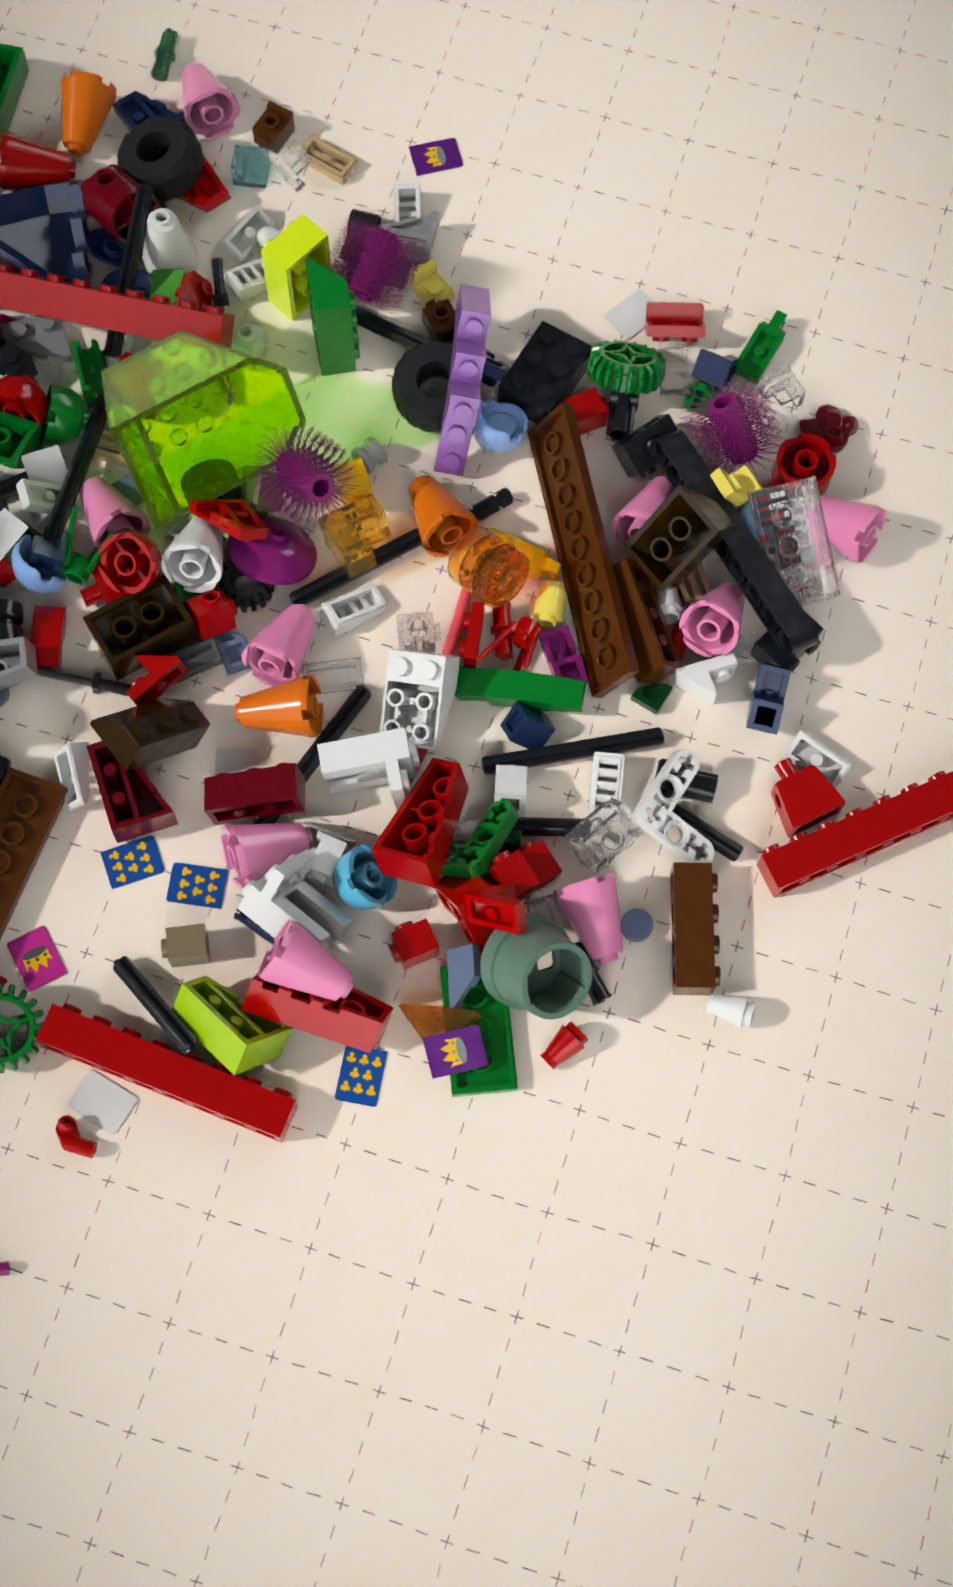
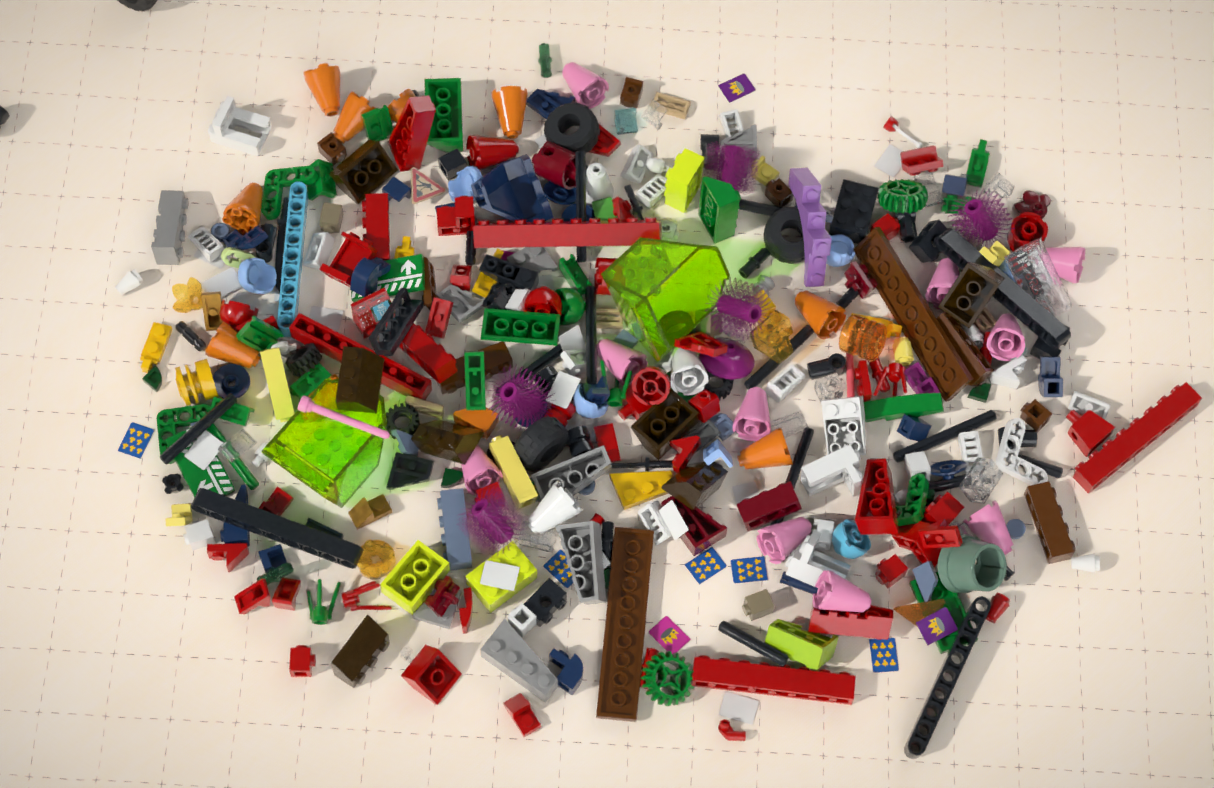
camera: 15 degrees left, 5 degrees down
(67, 714) = (639, 487): none -> yellow wing
(94, 779) = (673, 520): none -> white sticker
(209, 691) = (715, 451): none -> light blue panel
(368, 417) = (754, 262): none -> black axle
(420, 599) = (824, 367): none -> black piece
(449, 1123) = (943, 685): none -> black beam
(516, 479) = (858, 280): none -> dark red hips
(557, 803) = (948, 468): none -> dark blue dish
(649, 261) = (892, 125): none -> hinge
(727, 742) = (1035, 409): none -> reddish brown brick

